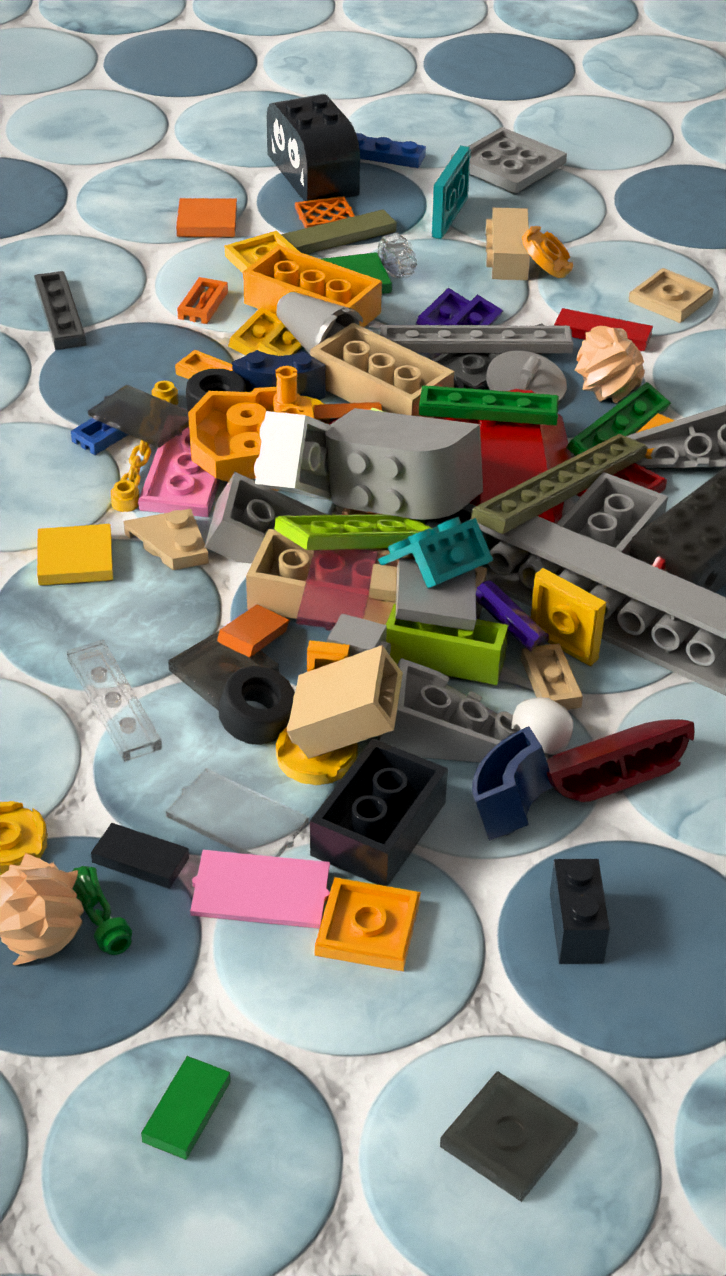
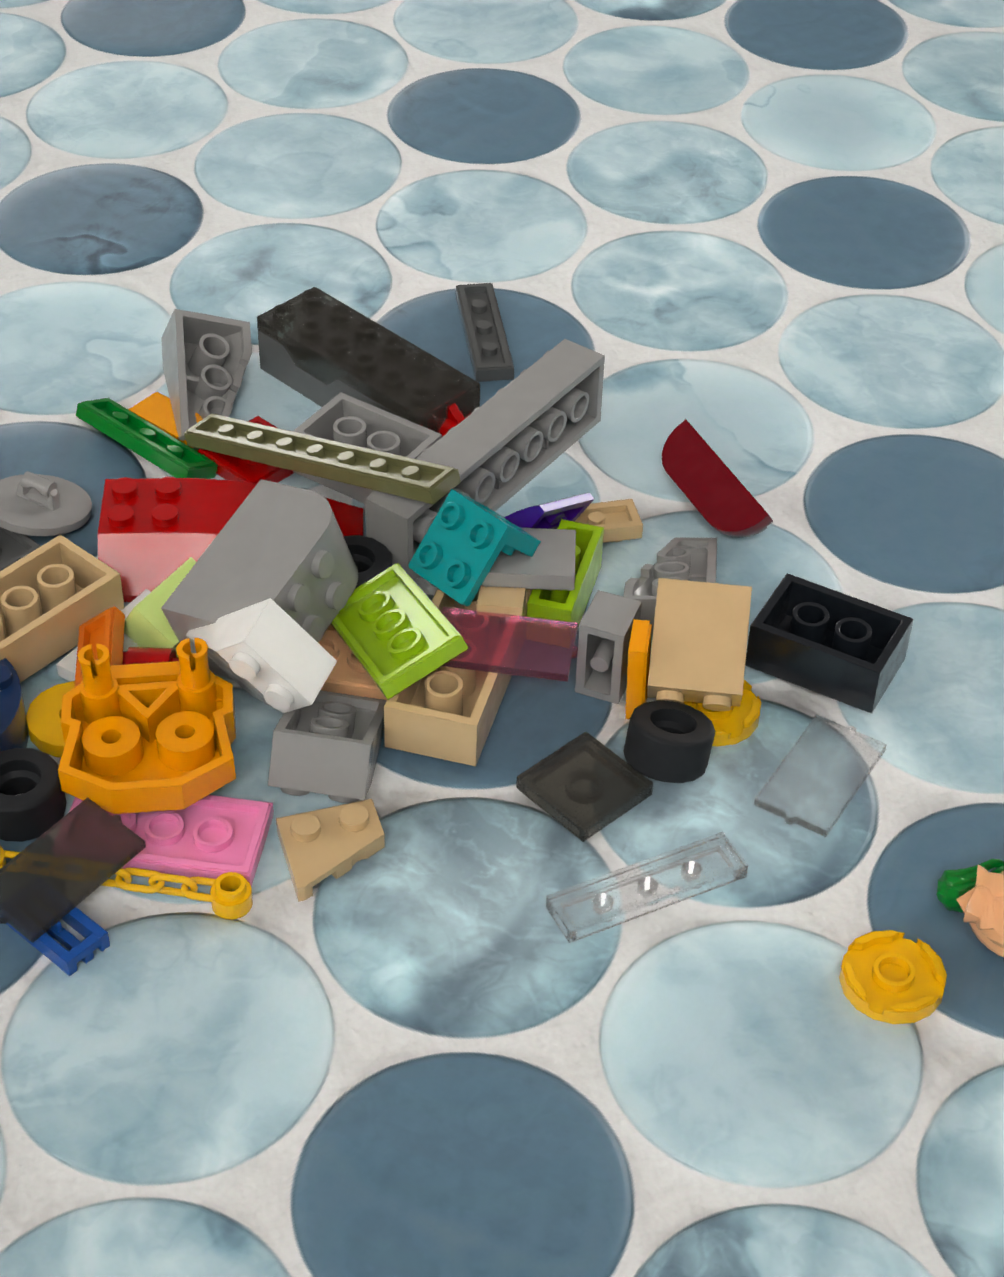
camera: 90 degrees left, 0 degrees up
(74, 554) = (358, 945): yellow tile -> none
(140, 855) = (898, 849): black tile -> none
(252, 630) = (534, 748): orange tile -> none
(260, 889) = (925, 752): bright pink piece -> none
(368, 924) = (952, 674): light orange tile -> none
(489, 405) = (152, 506): green tile -> none
(510, 782) = (774, 547): dark blue brick -> none
(547, 720) = (675, 524): white hair -> none
(568, 616) = (529, 477): yellow tile -> none
(579, 911) = (922, 523): black brick -> none
(610, 363) = (56, 417): light nougat hair -> none

